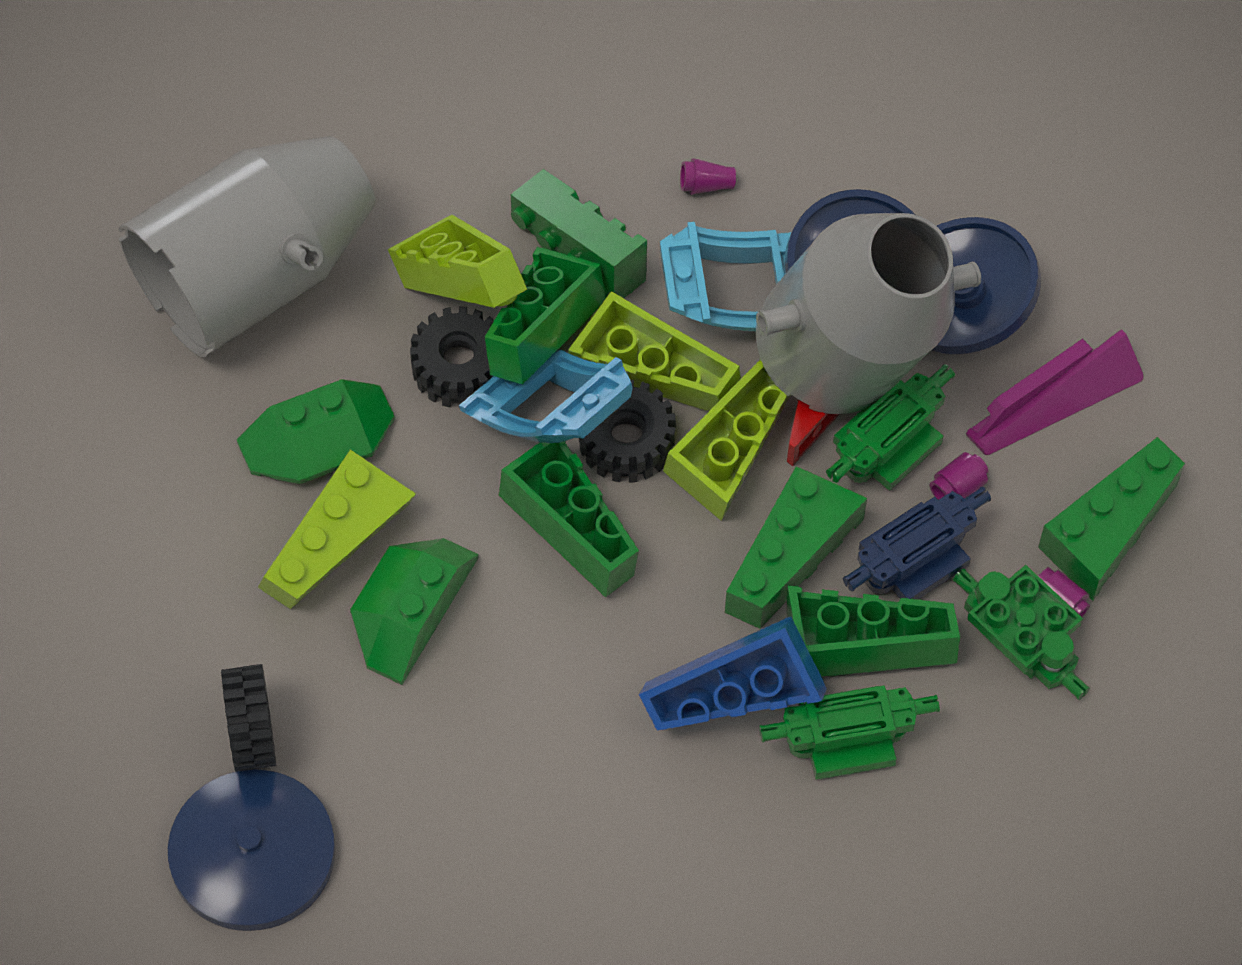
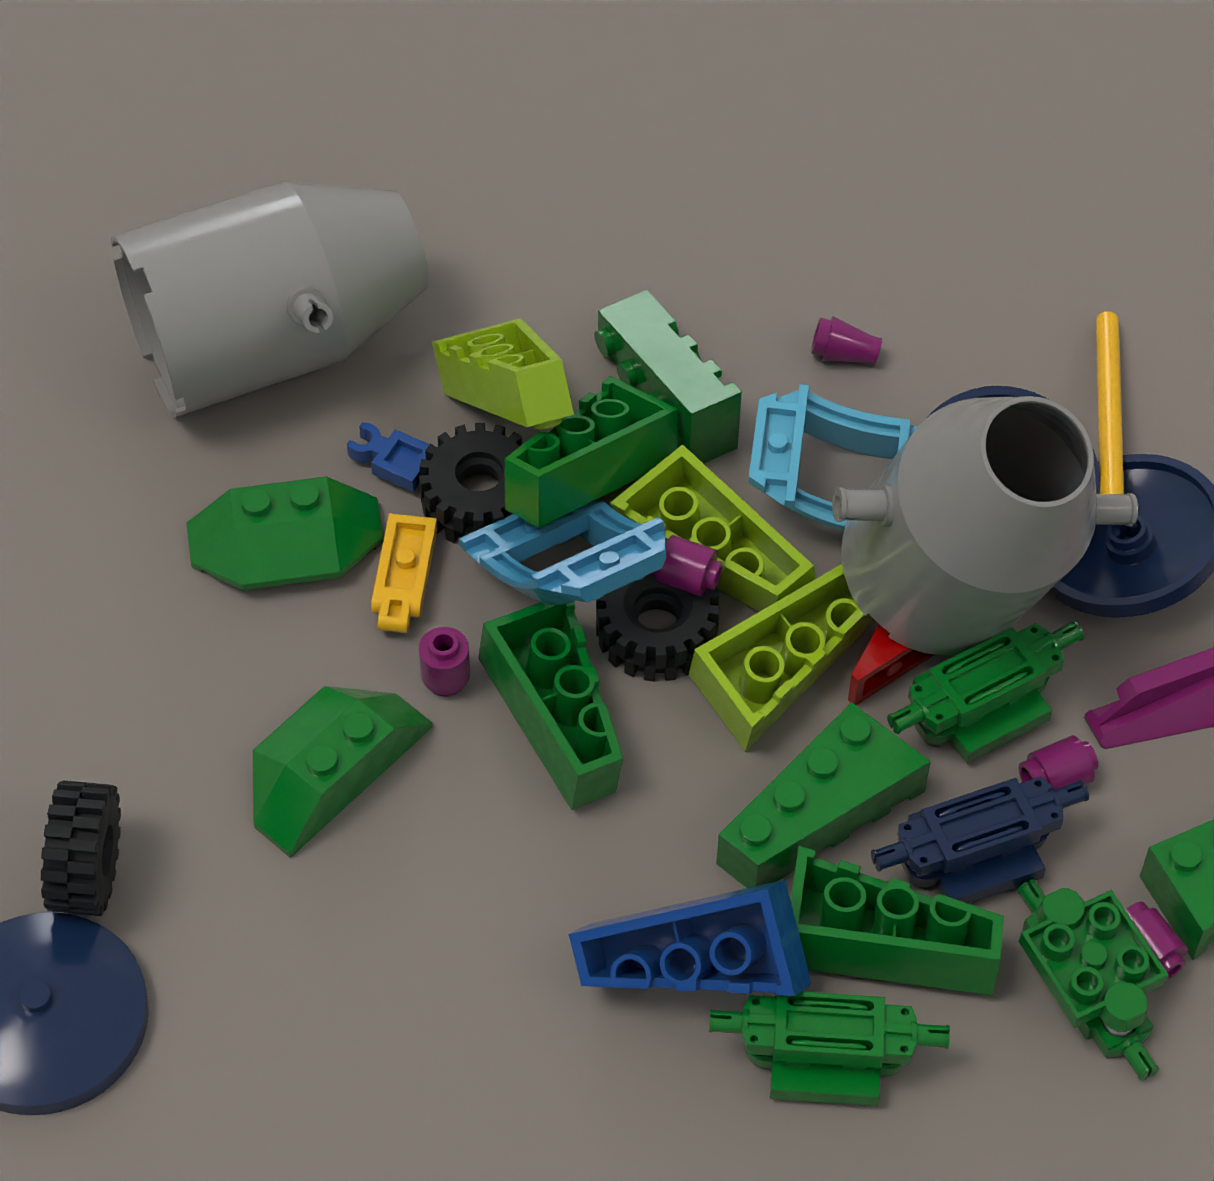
camera: 15 degrees right, 5 degrees down
(342, 519) = (272, 641): lime wedge -> none
(386, 350) = (392, 458): none -> blue plate
(420, 439) = (403, 571): none -> yellow hinge
(476, 504) = (444, 661): none -> magenta brick
(648, 388) = (689, 566): none -> magenta brick
(919, 171) = (1109, 404): none -> yellow piece

